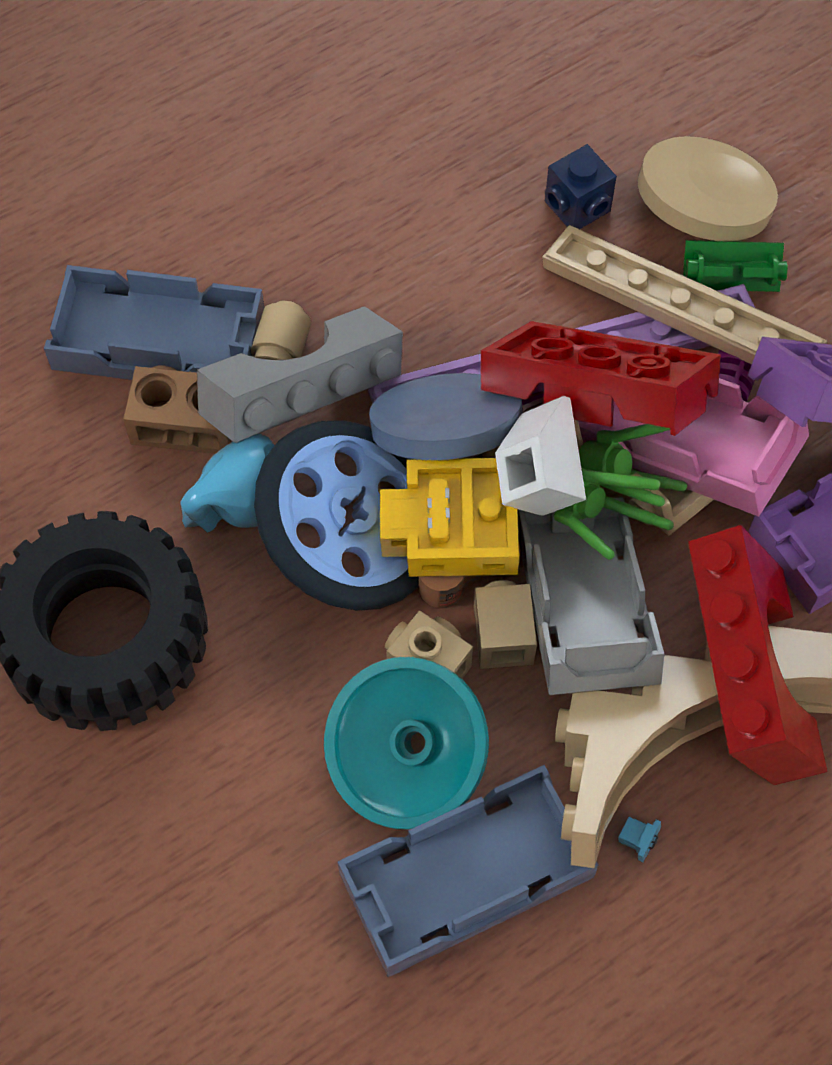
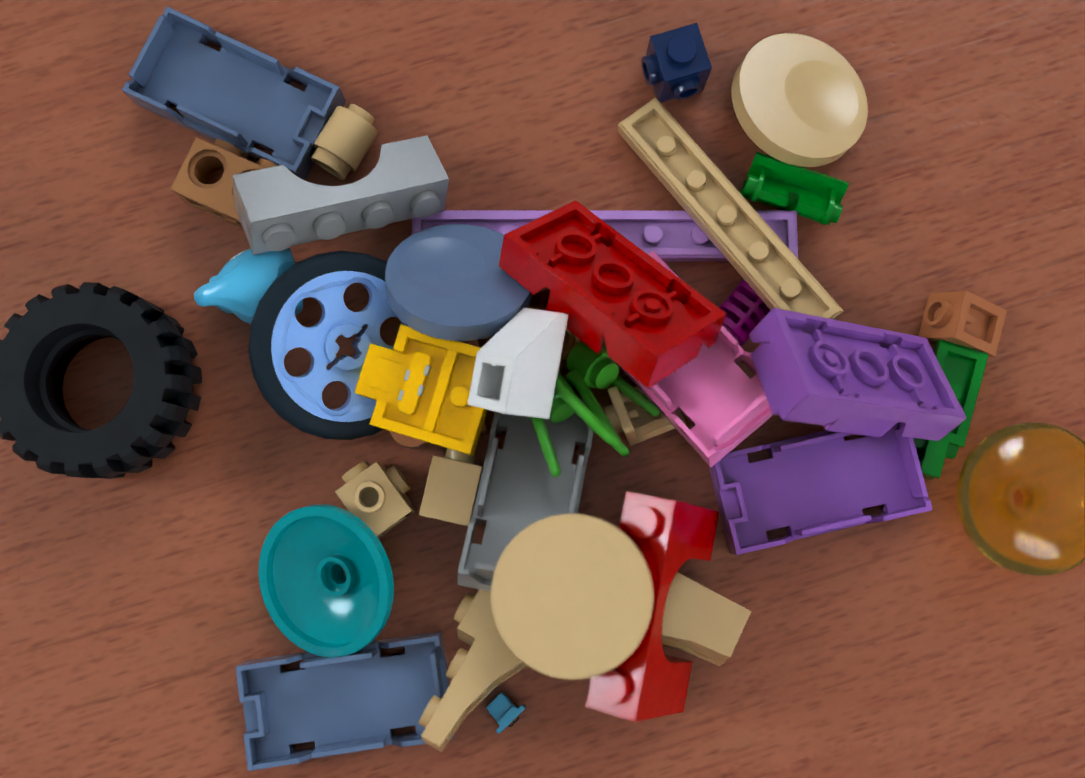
camera: 15 degrees right, 20 degrees up
(676, 637) = (572, 596): none -> tan piece

